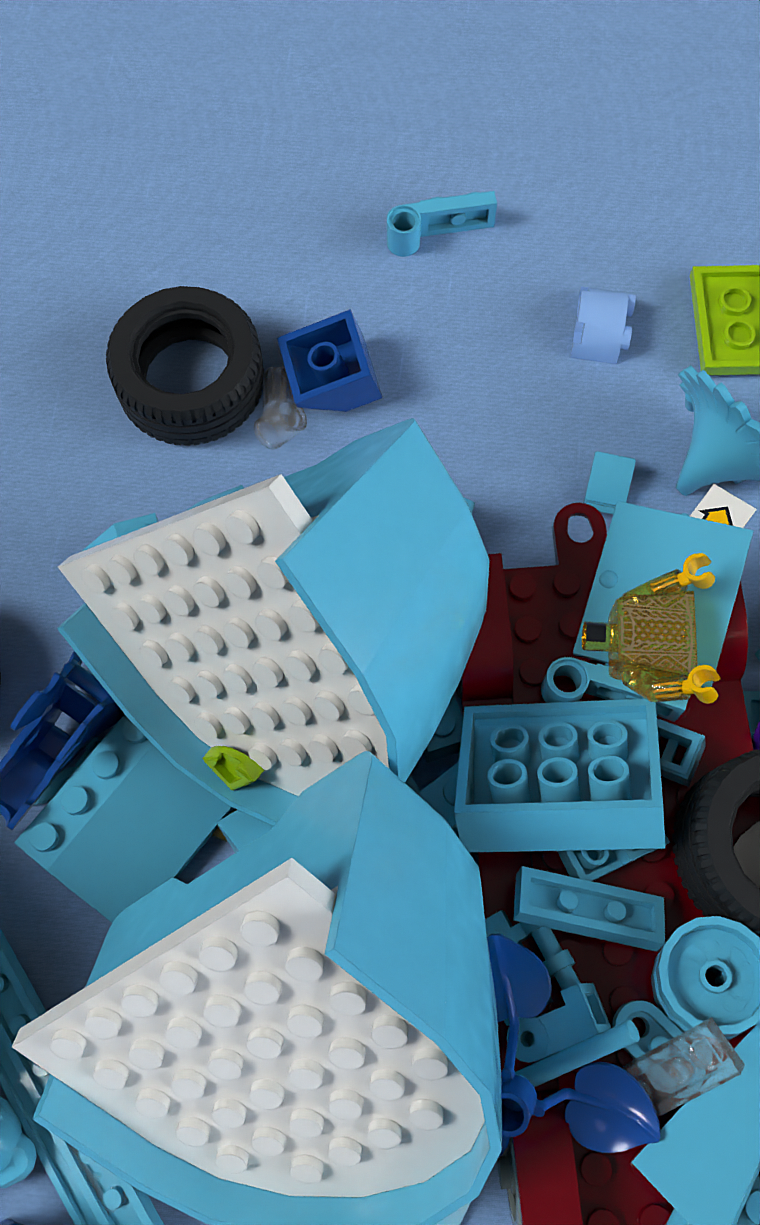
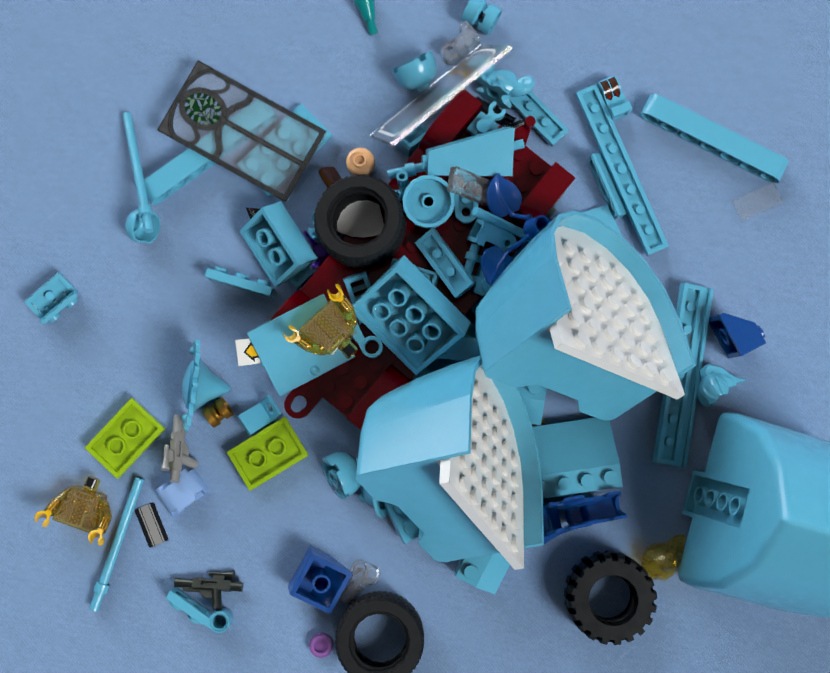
camera: 135 degrees left, 15 degrees up
(232, 766) = (519, 436): lime tile -> none
(257, 305) = (321, 645): none -> medium lavender tile
(450, 254) = (211, 587): none -> pearl dark grey piece
(548, 454) = (267, 453): none -> lime plate
(578, 156) = (102, 586): none -> medium azure bar
(595, 263) = (151, 524): none -> sticker
(655, 354) = (178, 452): none -> light grey piece
(664, 442) = (217, 412): none -> pearl gold wheel
(694, 202) = (80, 508): none -> clear yellow torso

